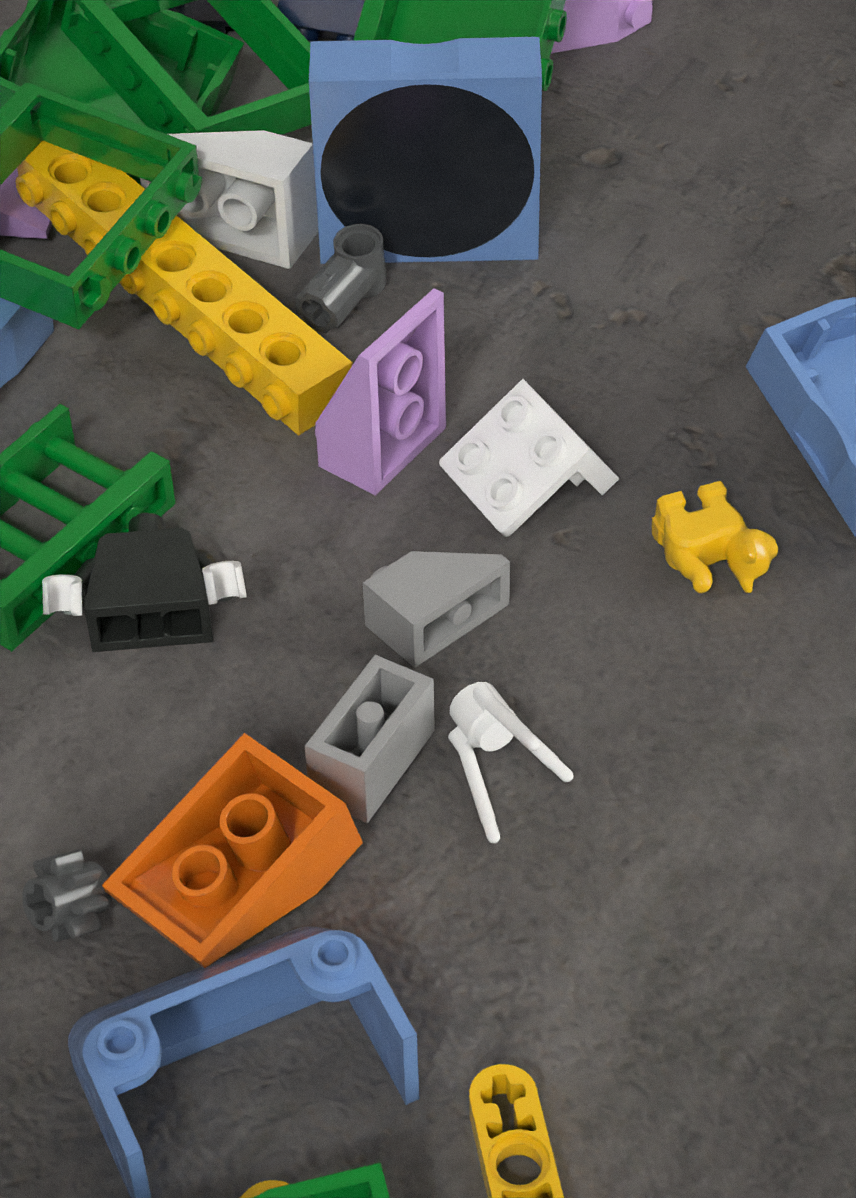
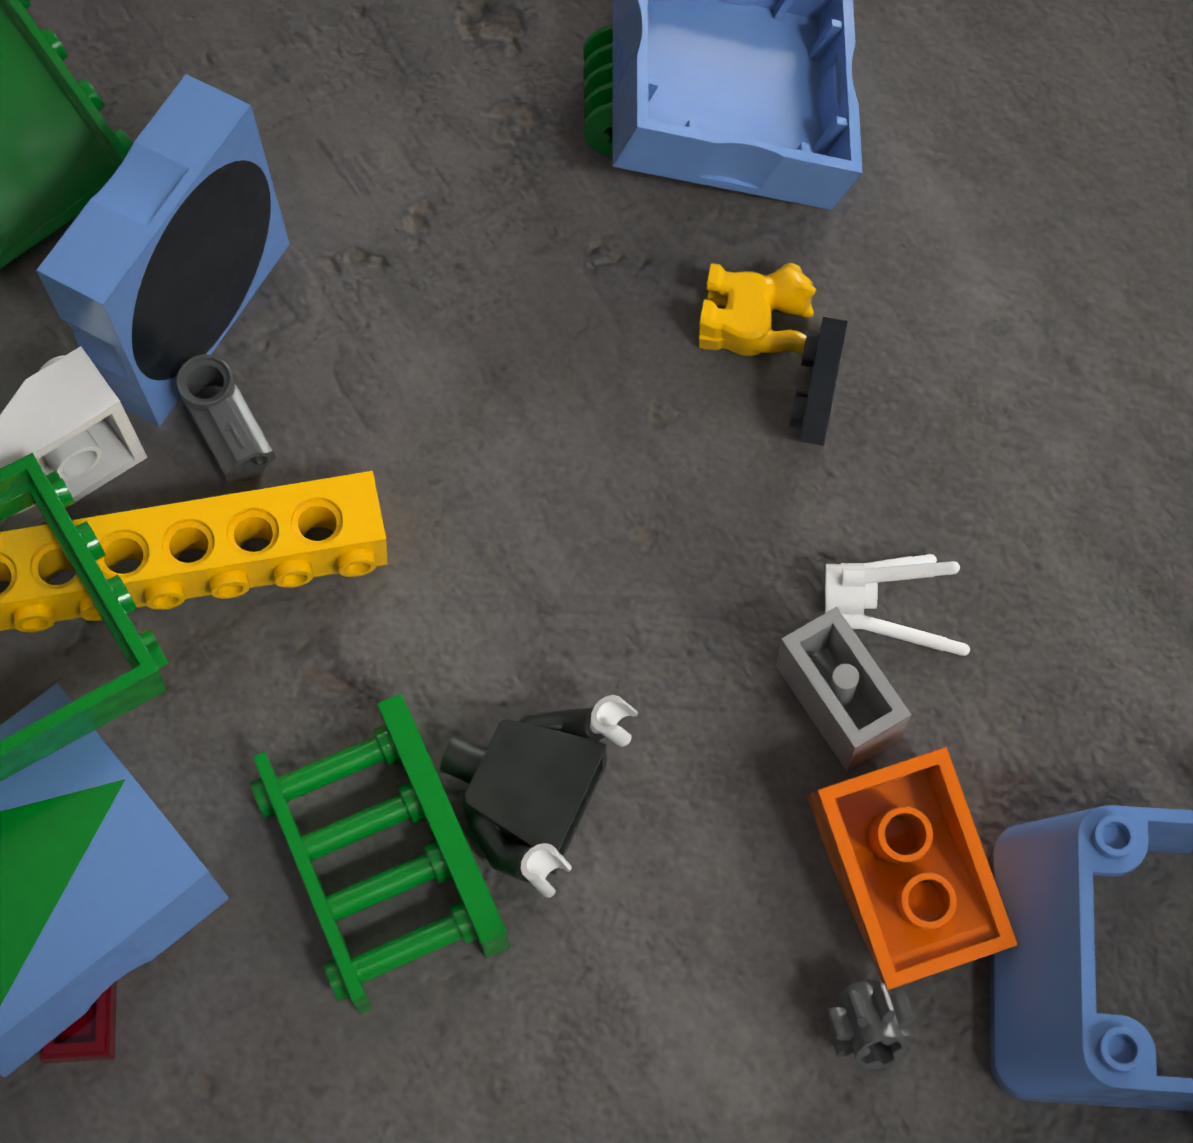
camera: 60 degrees left, 20 degrees up
(388, 401) = (447, 467): lavender slope -> none
(434, 599) = (693, 563): light grey slope -> none
(521, 459) = (568, 401): white bracket -> none
(672, 603) = (823, 354): none -> black wing

